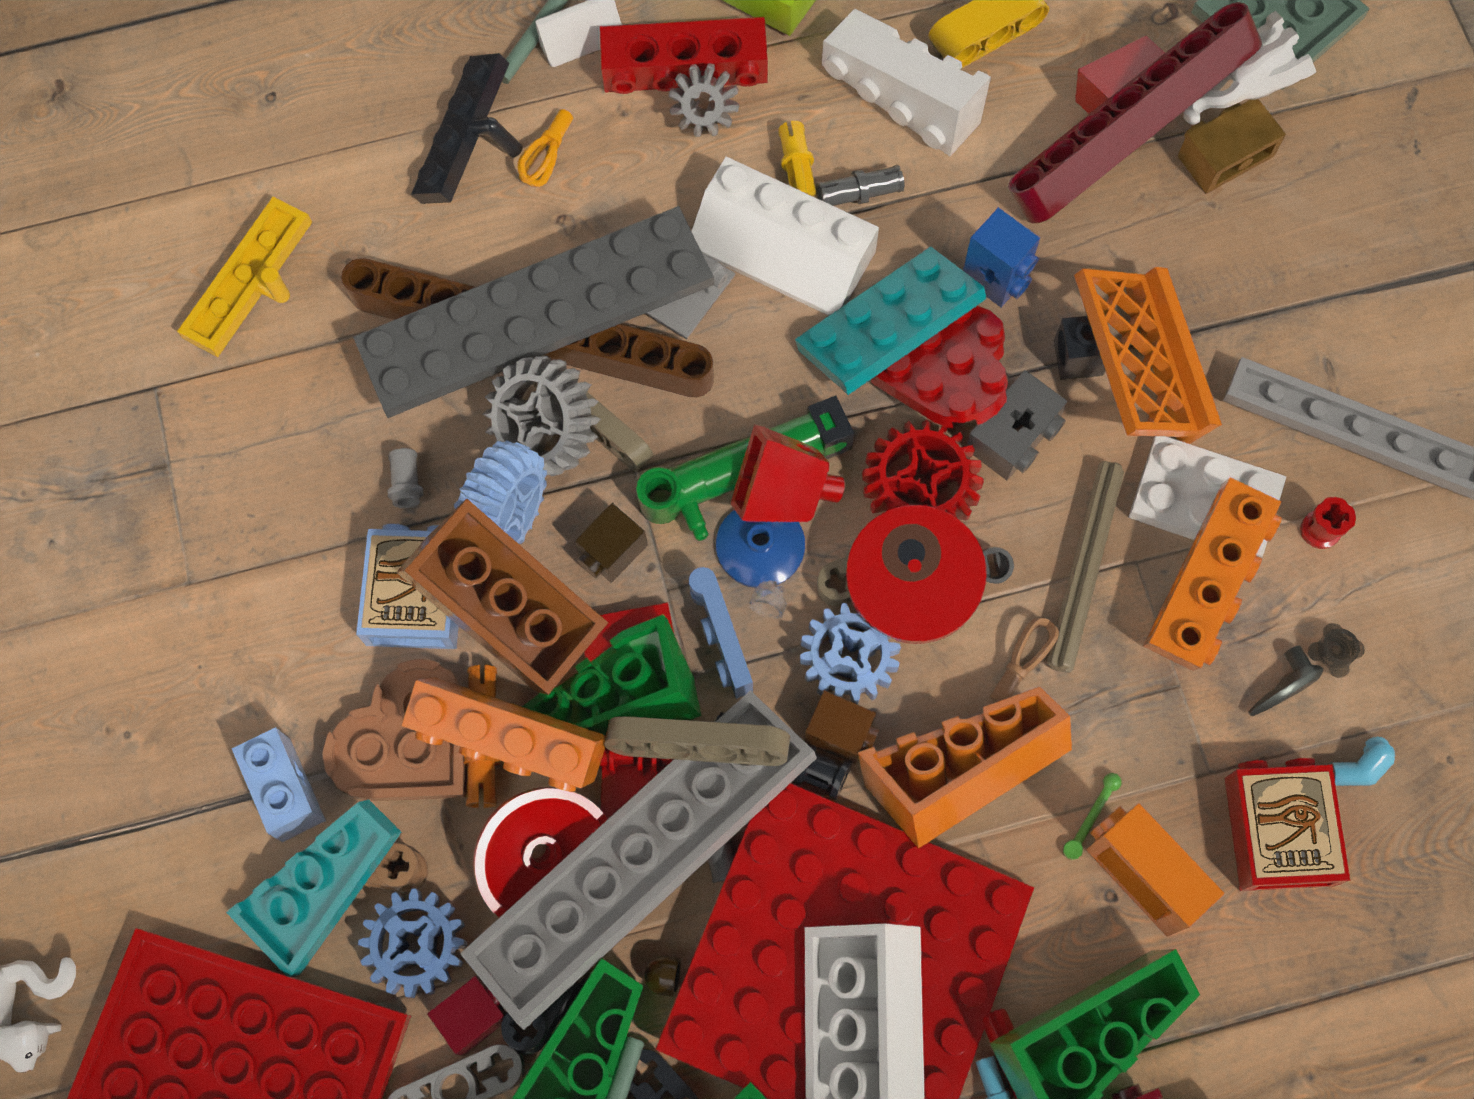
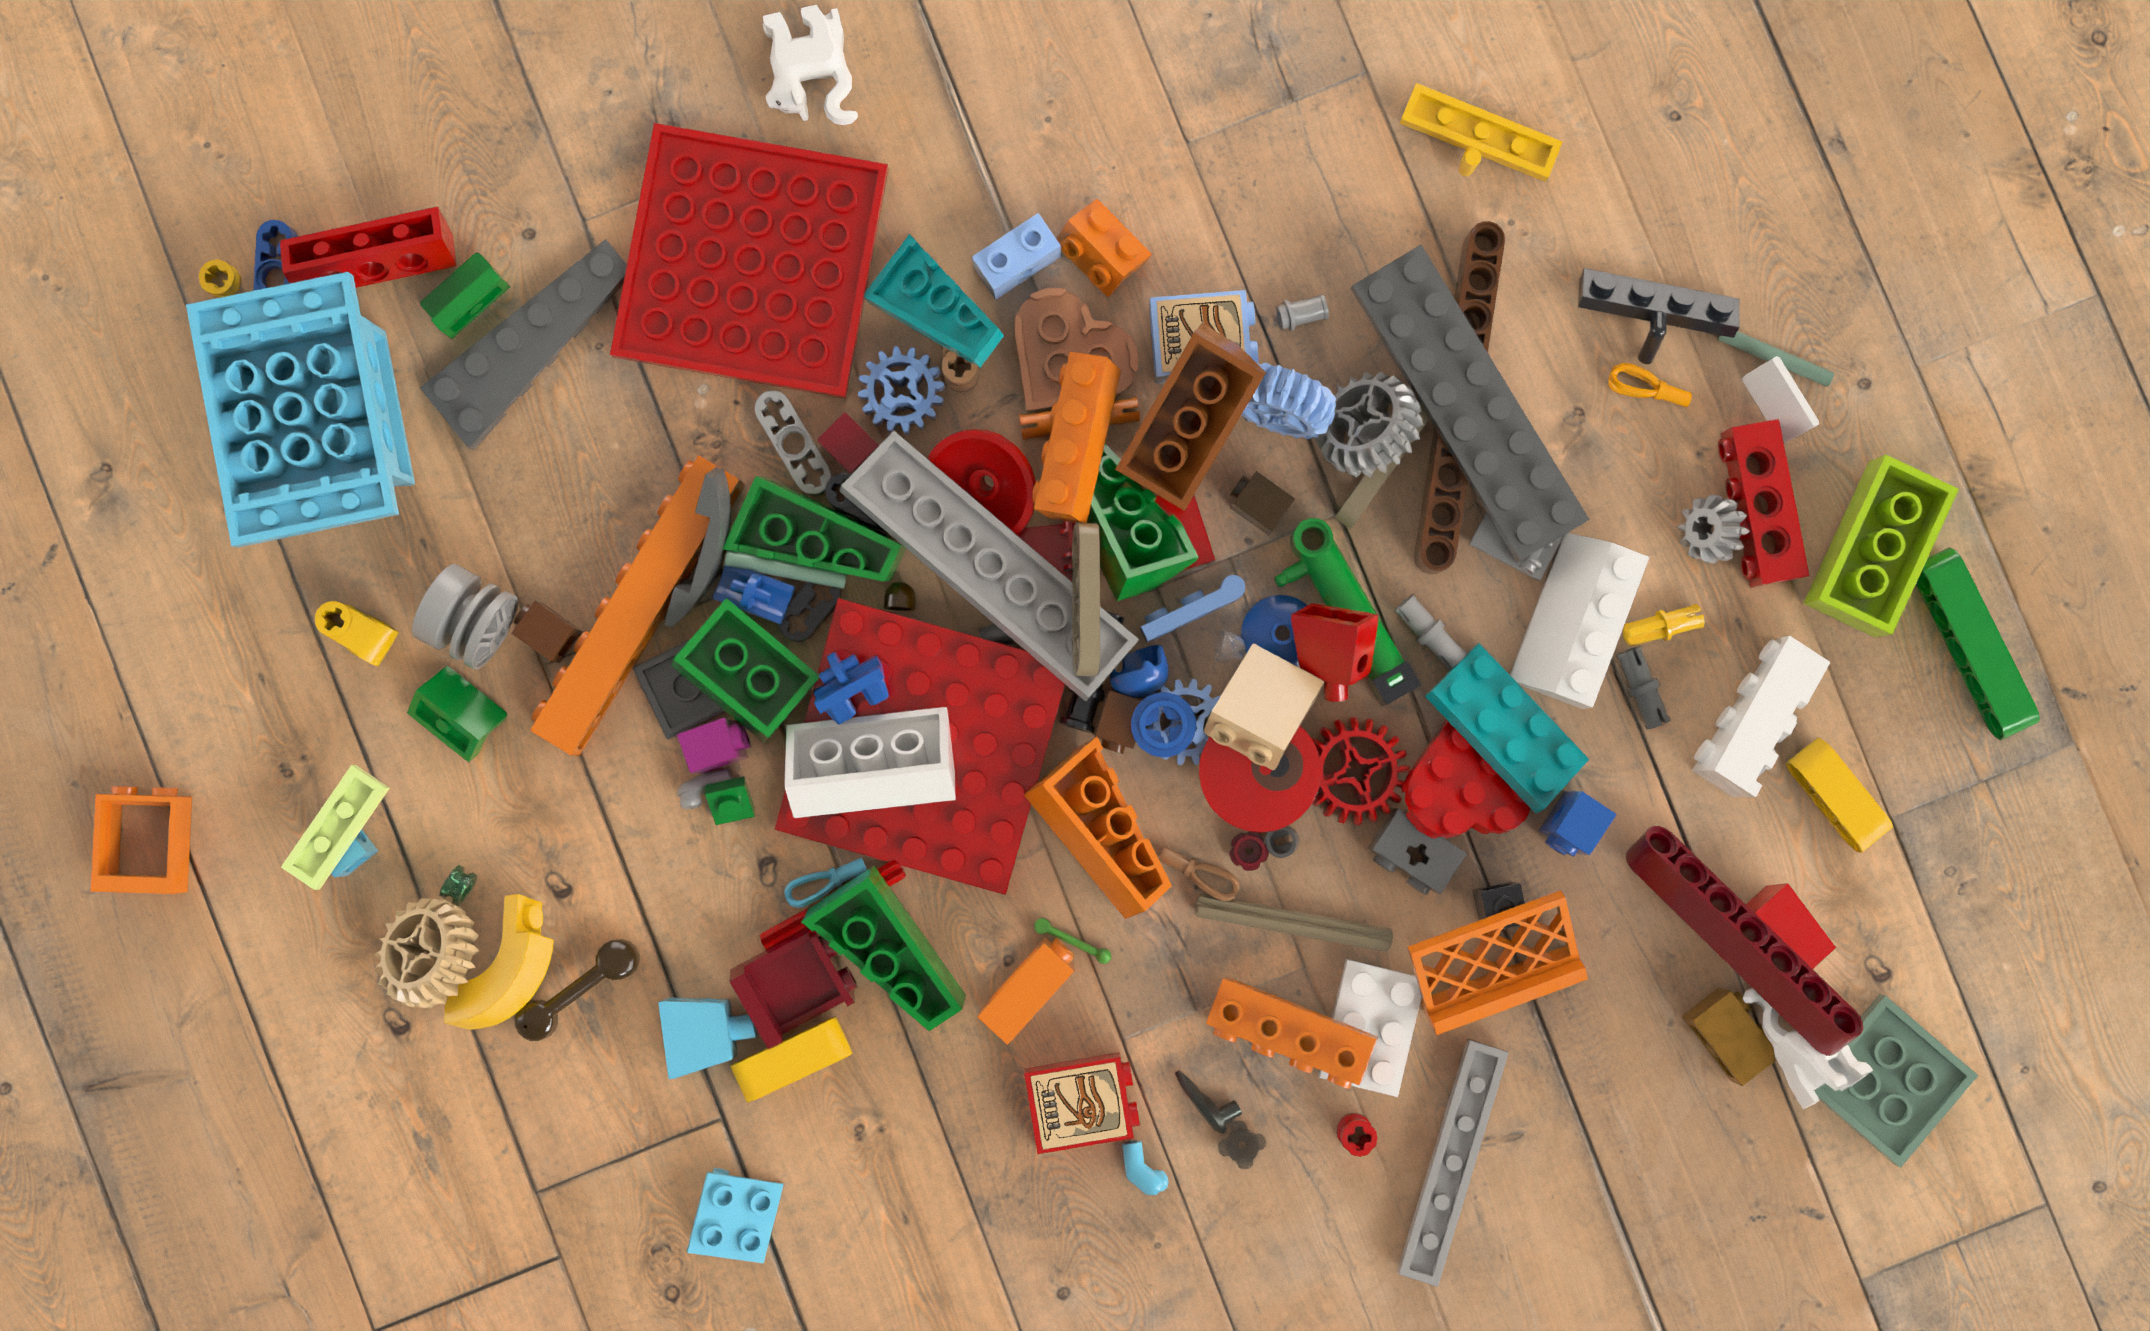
camera: 80 degrees right, 15 degrees up
(289, 687) = (1102, 247): none -> orange bracket
(761, 1047) = (847, 679): none -> blue hips
(777, 386) = (1430, 632): none -> light grey pin
(788, 694) = (1141, 672): none -> blue hair
(844, 560) = (1262, 707): none -> tan panel
(868, 658) = (1174, 708): none -> blue gear
(1008, 594) = (1240, 843): none -> dark red plate

